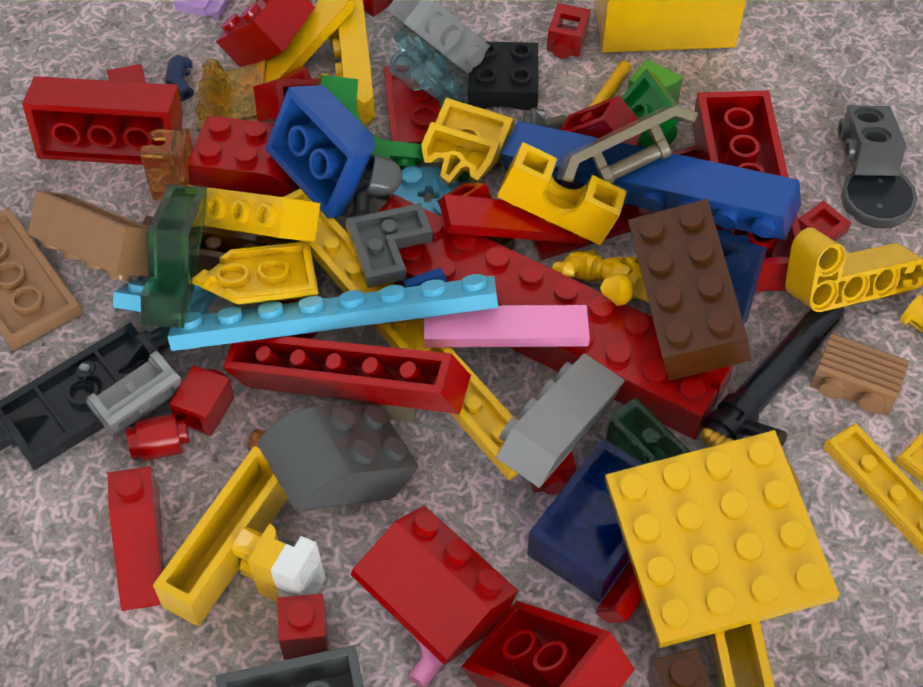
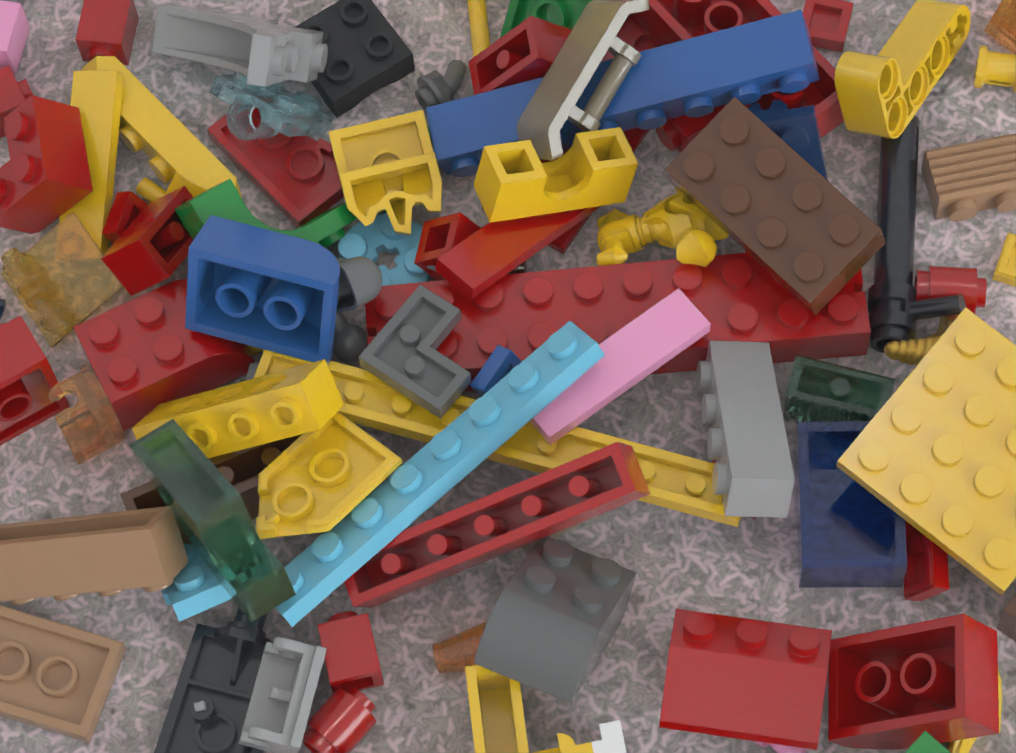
camera: 30 degrees left, 10 degrees up
(798, 432) = (948, 281): none -> red brick

